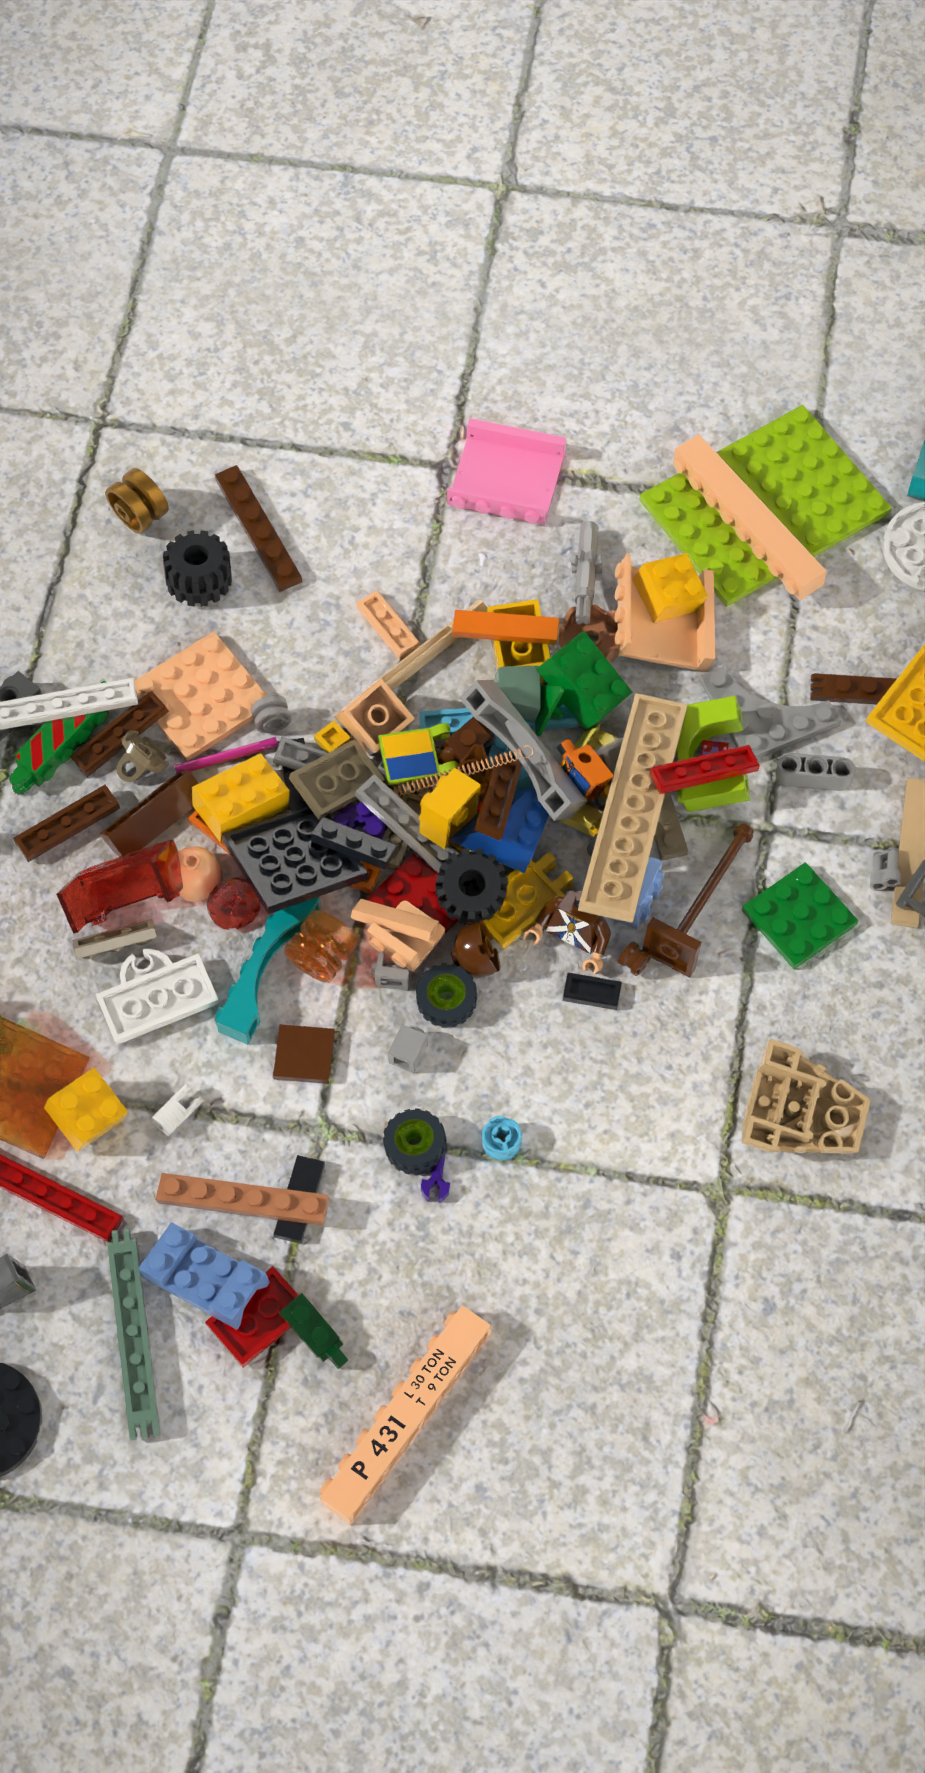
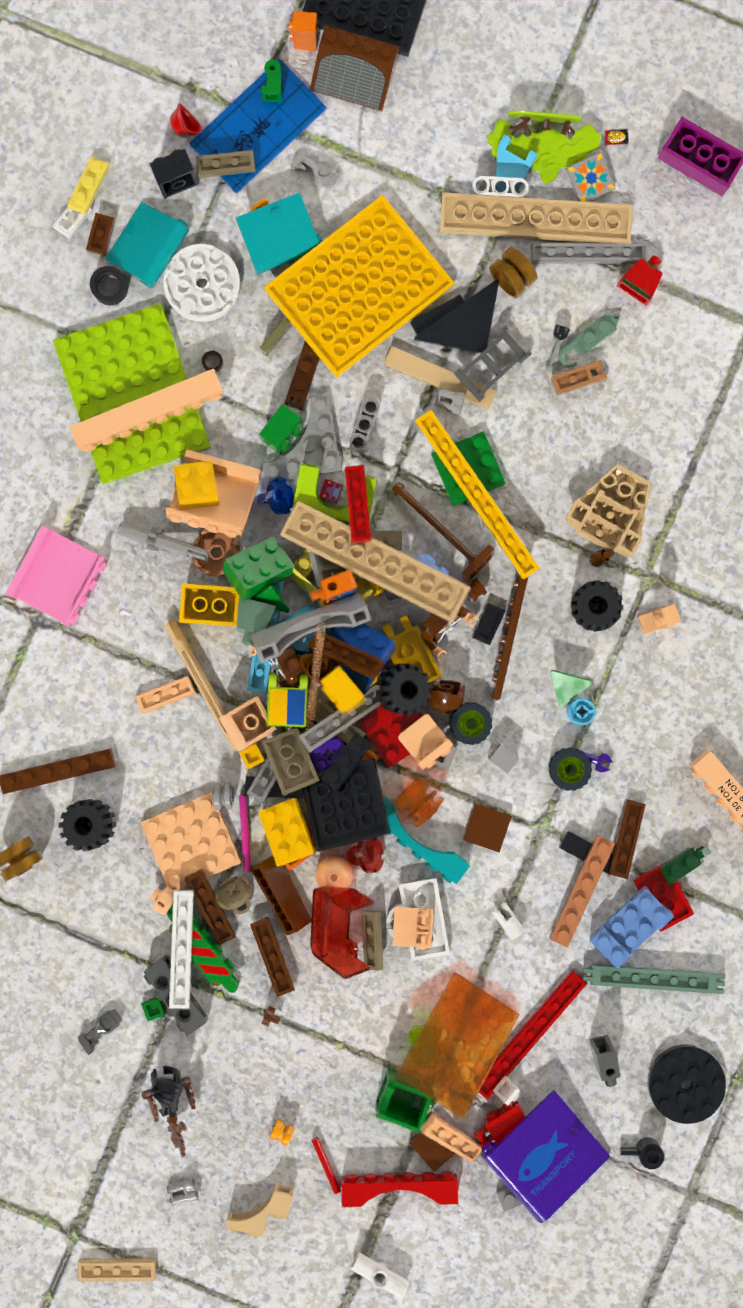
camera: 80 degrees left, 25 degrees up
(85, 1109) = (499, 983): yellow brick -> none
(117, 670) = (162, 899): none -> light nougat piece
(143, 981) = (413, 927): none -> light nougat hinge
(332, 1244) = (626, 839): none -> reddish brown tile
(394, 919) = (415, 747): light nougat tile -> none
(505, 627) = (202, 613): orange tile -> none
(533, 1107) = (567, 686): none -> piece
(582, 1017) = (508, 638): none -> reddish brown hinge
(658, 1117) = (609, 607): none -> black wheel
(664, 1211) = (659, 619): none -> light nougat bracket
(688, 684) = (278, 496): none -> clear blue tile
(729, 1113) = (601, 557): none -> reddish brown cylinder
(764, 924) = (477, 494): none -> yellow plate
(775, 670) = (281, 429): none -> green brick
(838, 592) = (212, 352): none -> dark brown piece
(894, 642) = (274, 338): none -> olive tile
(895, 432) = (98, 275): none -> black tyre

